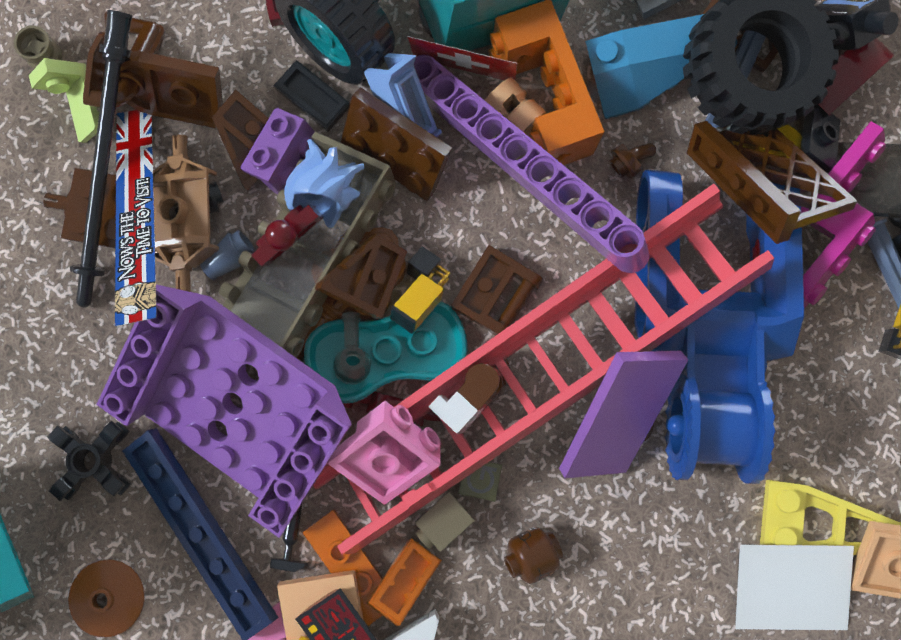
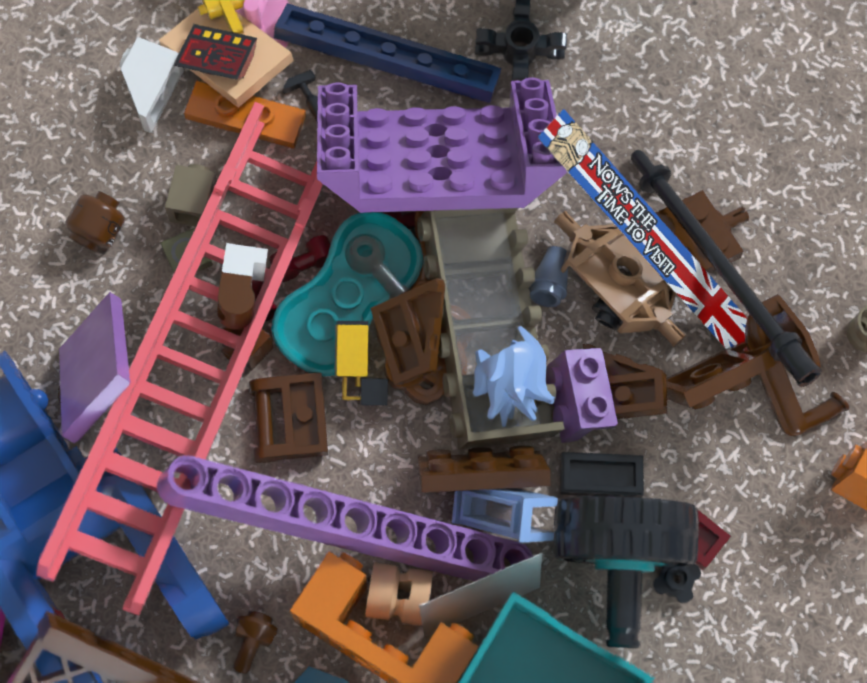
camera: 140 degrees right, 10 degrees down
(68, 77) = (823, 314): yellowish green bracket -> none
(283, 234) = (507, 295): dark red plate -> none
(387, 452) = (274, 195): bright pink plate -> none
(404, 582) = (191, 127): orange plate -> none

